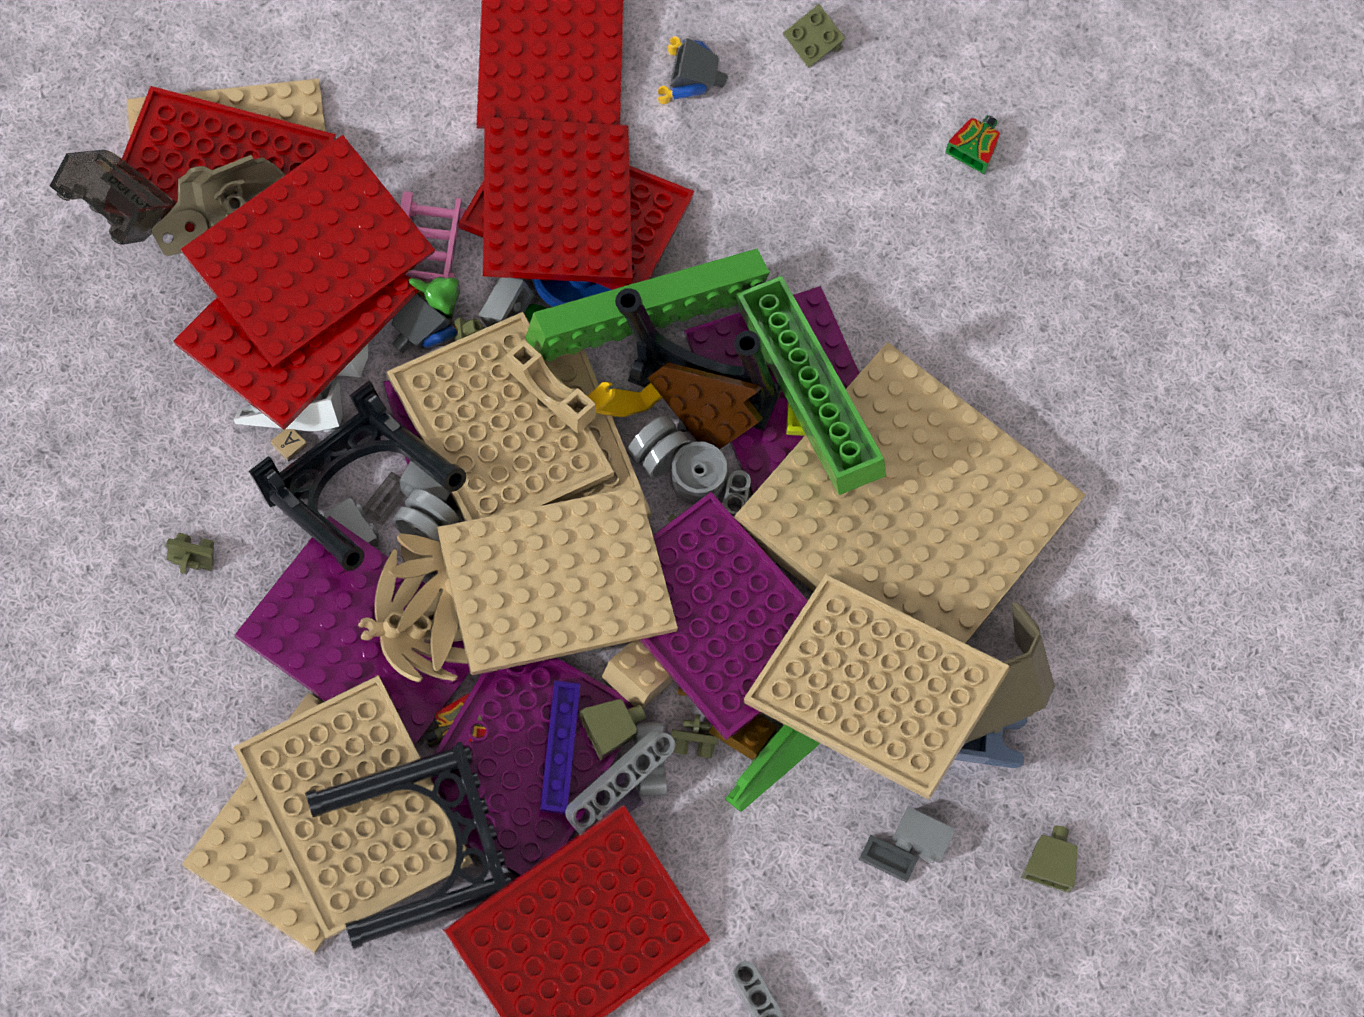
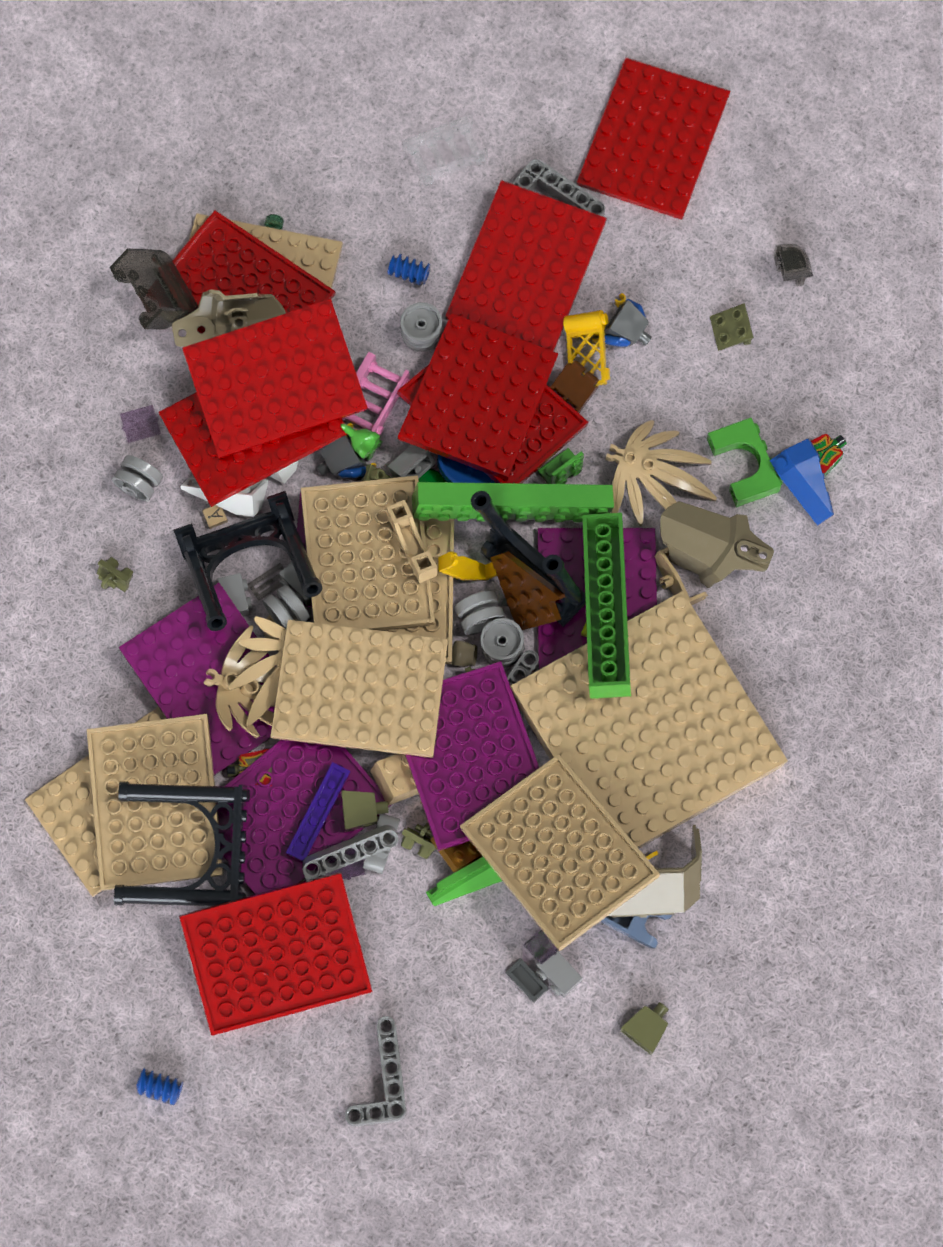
camera: 30 degrees right, 5 degrees up
(152, 365) = (140, 423): none -> clear purple piece
(177, 427) = (137, 478): none -> light grey wheel
(227, 79) = (274, 221): none -> clear green tile
(413, 84) = (408, 269): none -> blue piece
(454, 144) = (421, 327): none -> light grey wheel
(651, 82) = (587, 325): none -> yellow piece
(659, 503) = (464, 654): none -> dark tan piece
(663, 155) = (575, 386): none -> reddish brown plate
(685, 250) = (562, 467): none -> bright green bracket
(775, 216) = (641, 463): none -> tan plant
(861, 332) = (672, 578): none -> tan piece
(882, 151) = (746, 436): none -> bright green arch
(893, 806) = (541, 947): none -> clear purple piece
(897, 279) = (711, 542): none -> dark tan piece
(965, 170) = (802, 474): none -> blue wedge

